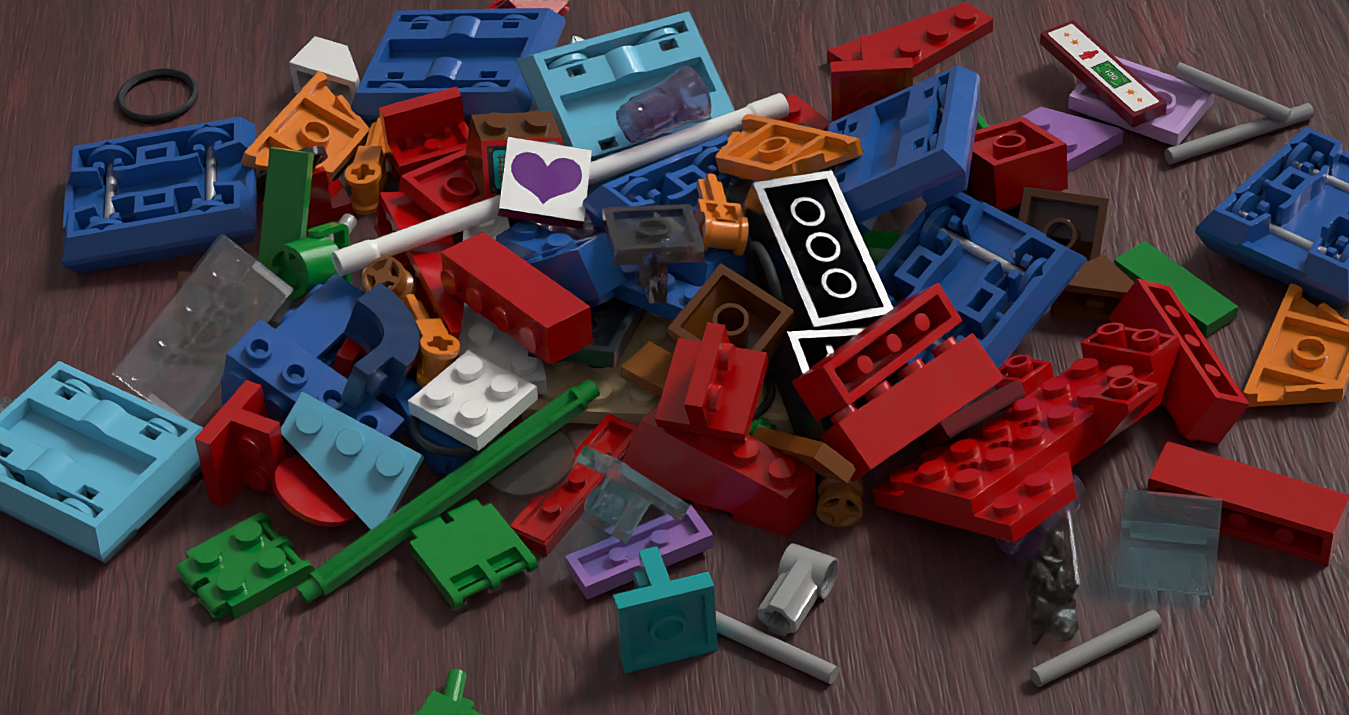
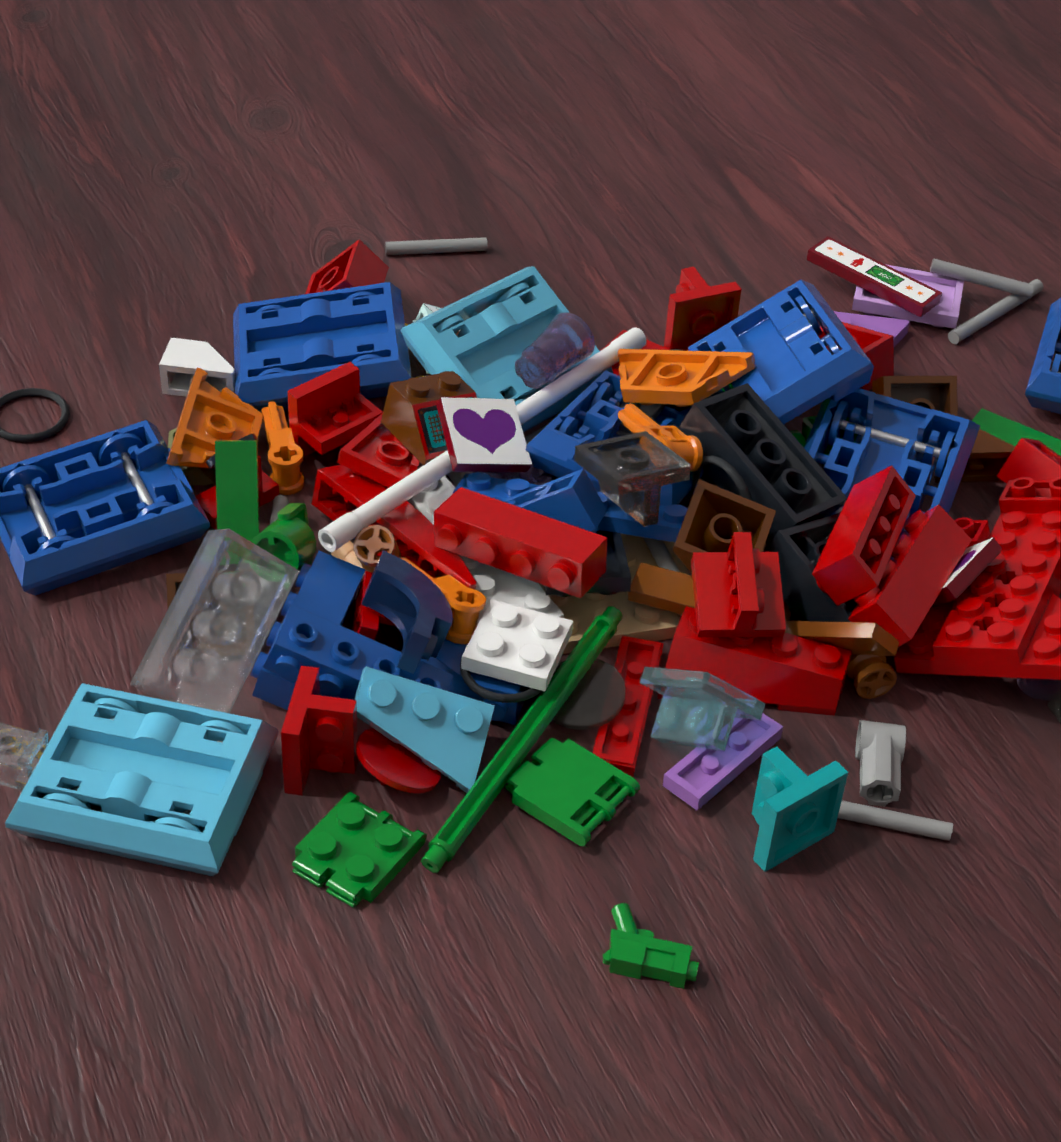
camera: 25 degrees left, 0 degrees up
(925, 38) = (714, 261): red wing -> none

